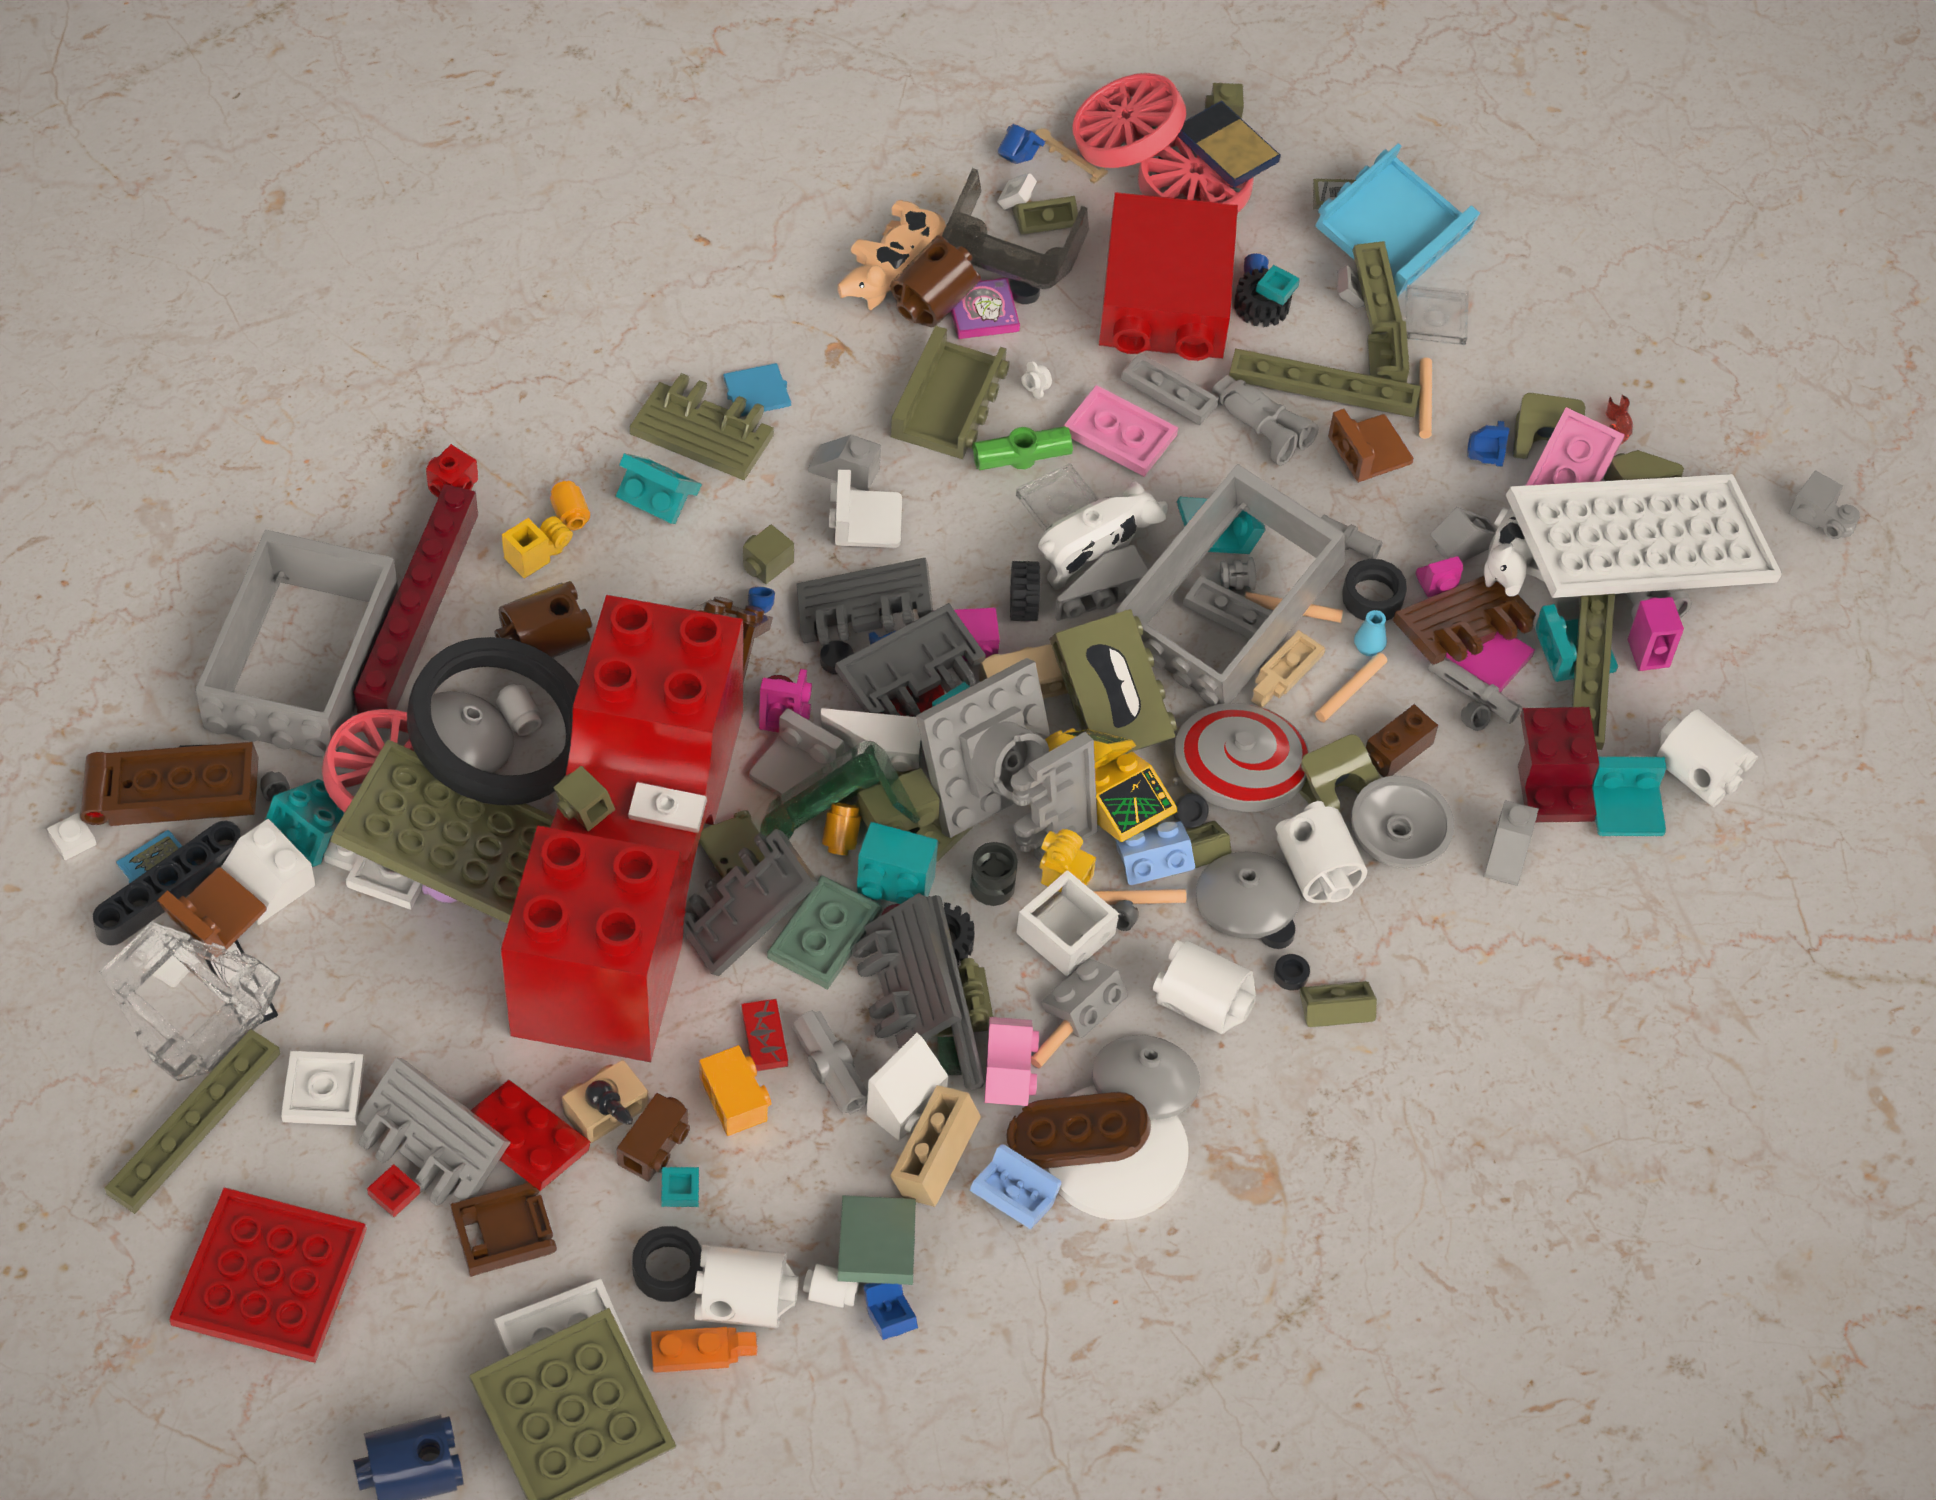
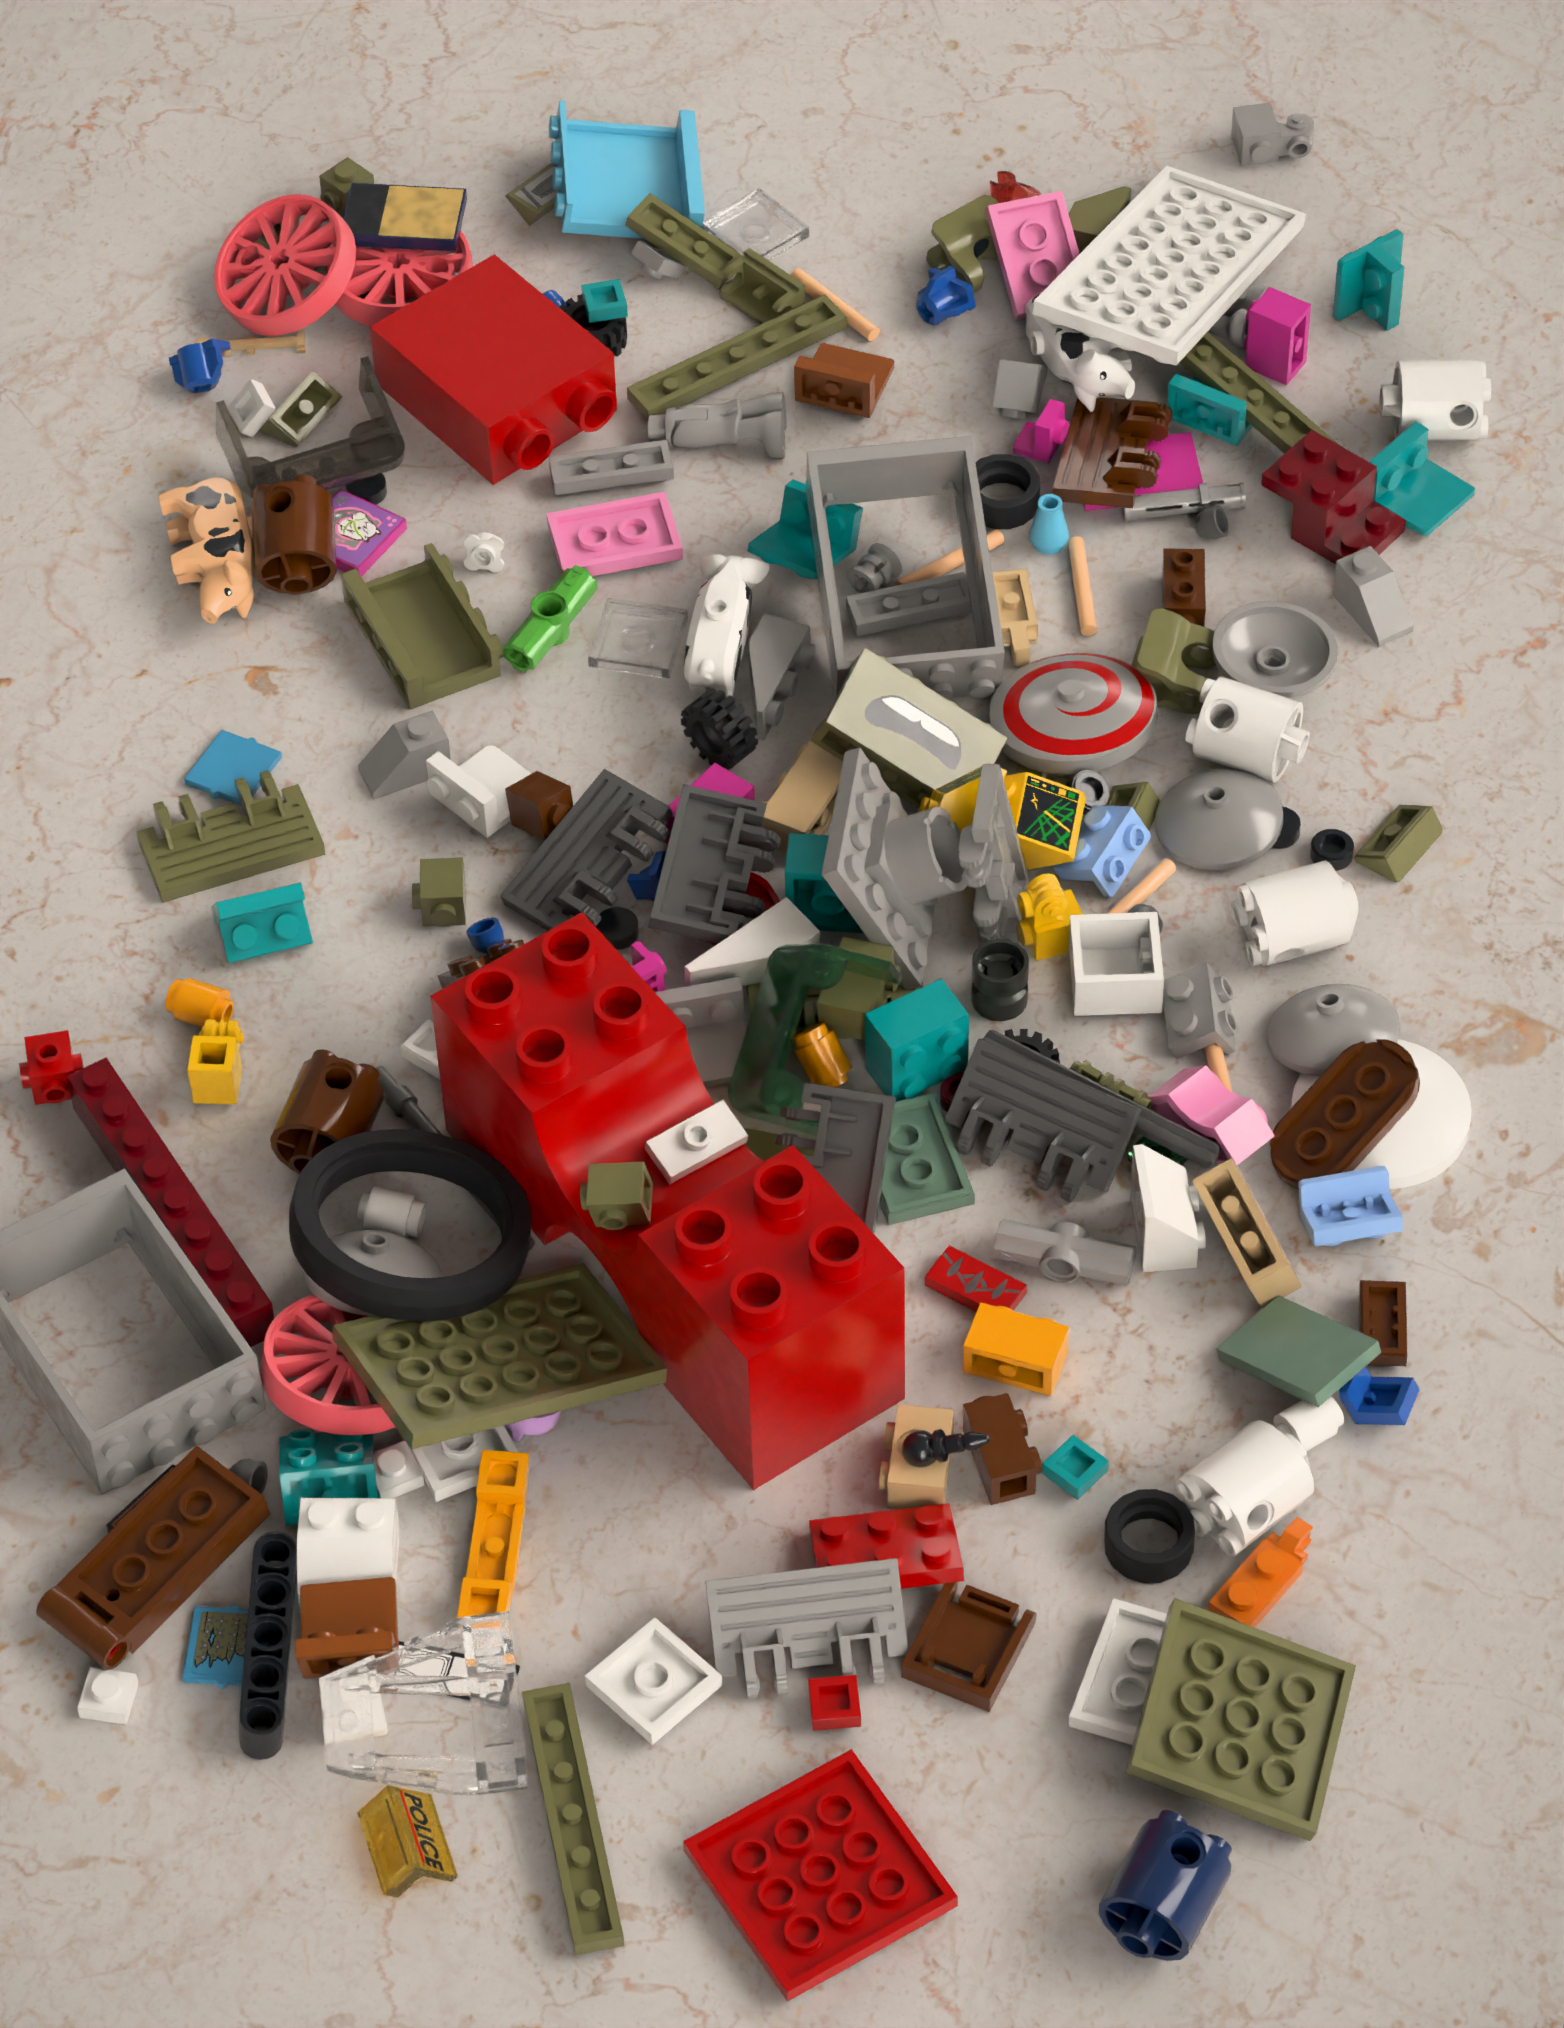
camera: 40 degrees left, 5 degrees down
(105, 1053) = (405, 1839): none -> clear yellow panel
(342, 939) = (496, 1533): none -> light orange slope
(876, 546) = (538, 804): none -> reddish brown brick
(951, 1271) = (1385, 1319): none -> reddish brown plate
(1761, 646) = (1371, 281): none -> teal bracket

